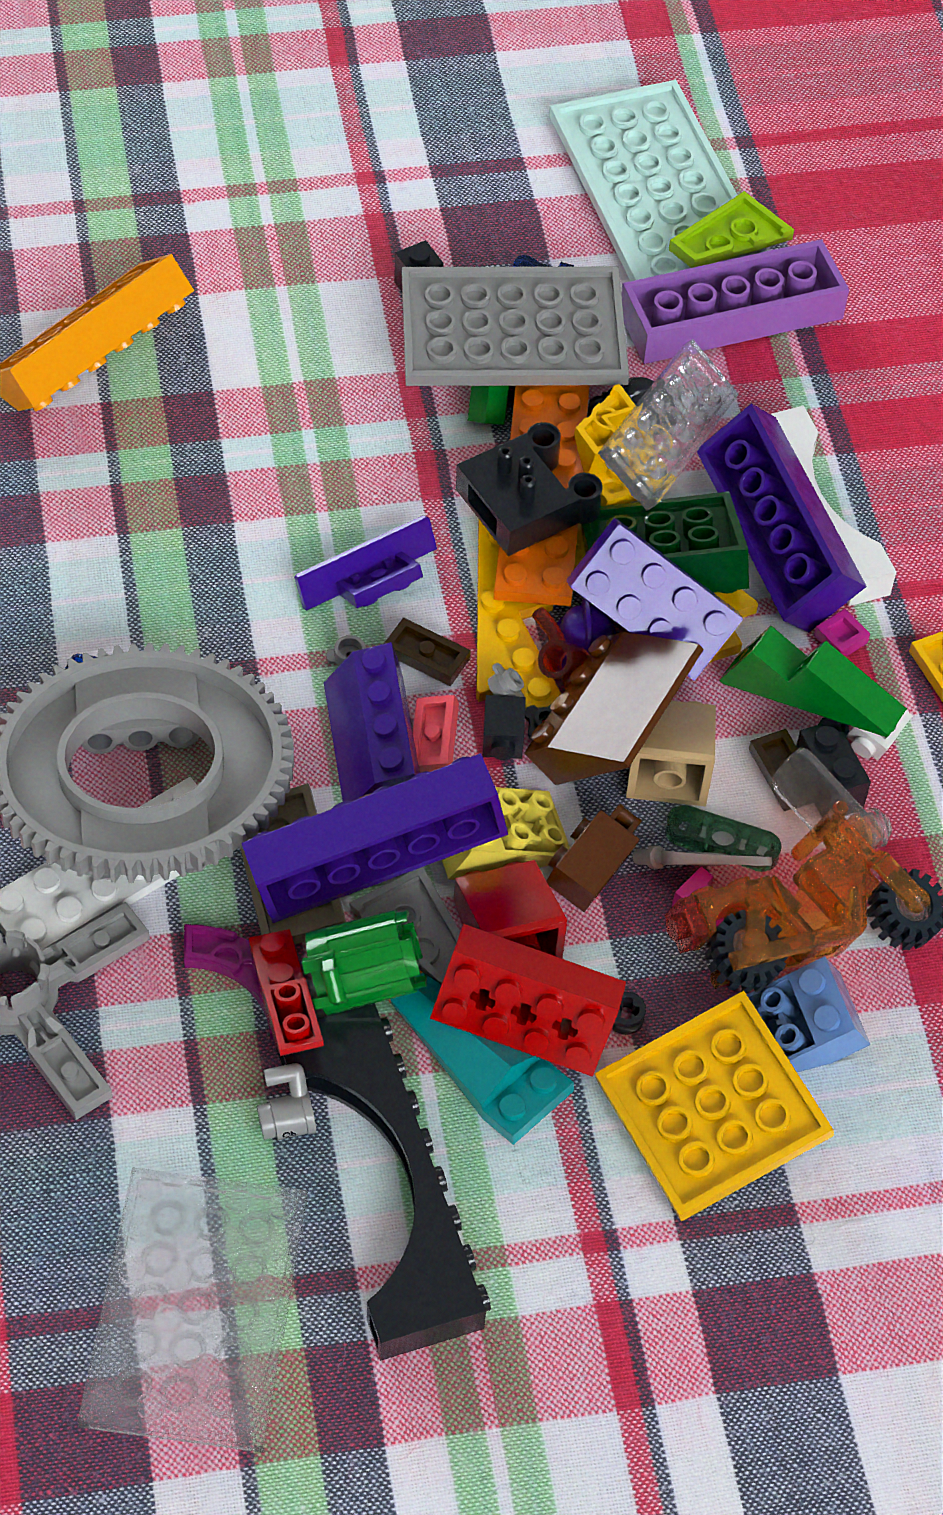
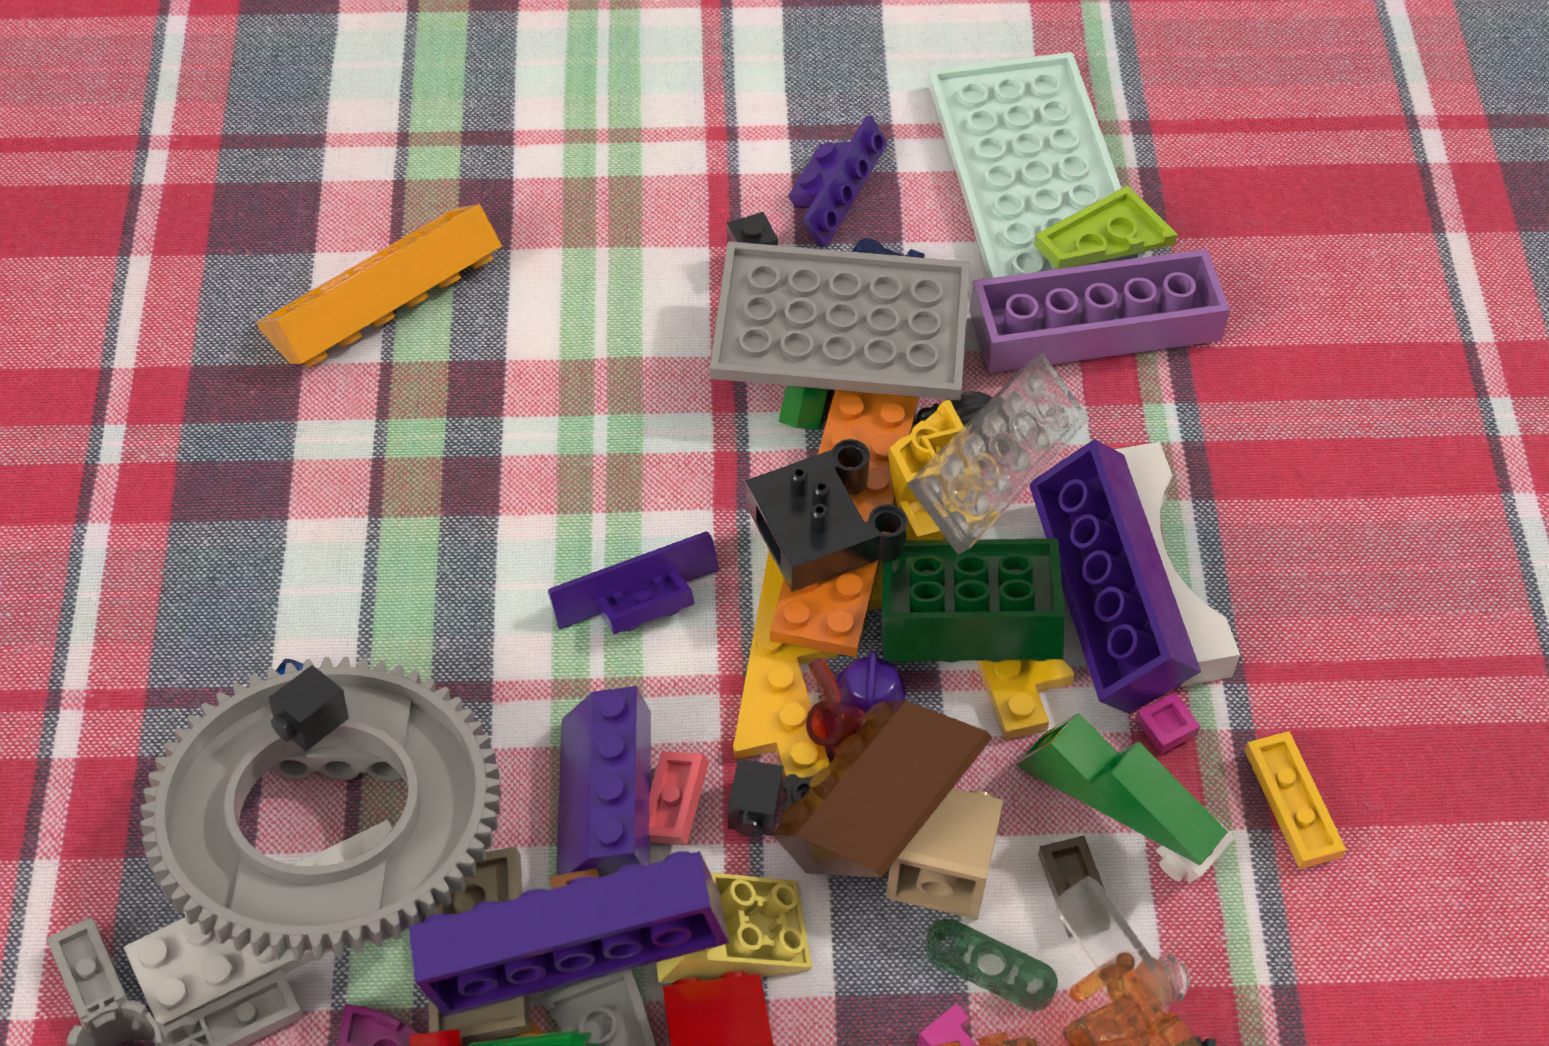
camera: 10 degrees right, 0 degrees up
(115, 683) = (308, 708): none -> black brick
(343, 647) = (593, 678): light grey plate -> none
(428, 651) = (684, 694): dark brown plate -> none
(481, 208) = (836, 178): none -> dark purple bracket
(505, 682) = (765, 745): light grey plate -> none
(594, 856) = (833, 974): reddish brown brick -> none
(652, 594) = (947, 661): brick -> none
(656, 857) = (908, 983): light grey animal -> none
(833, 750) = (1134, 885): black hinge -> none

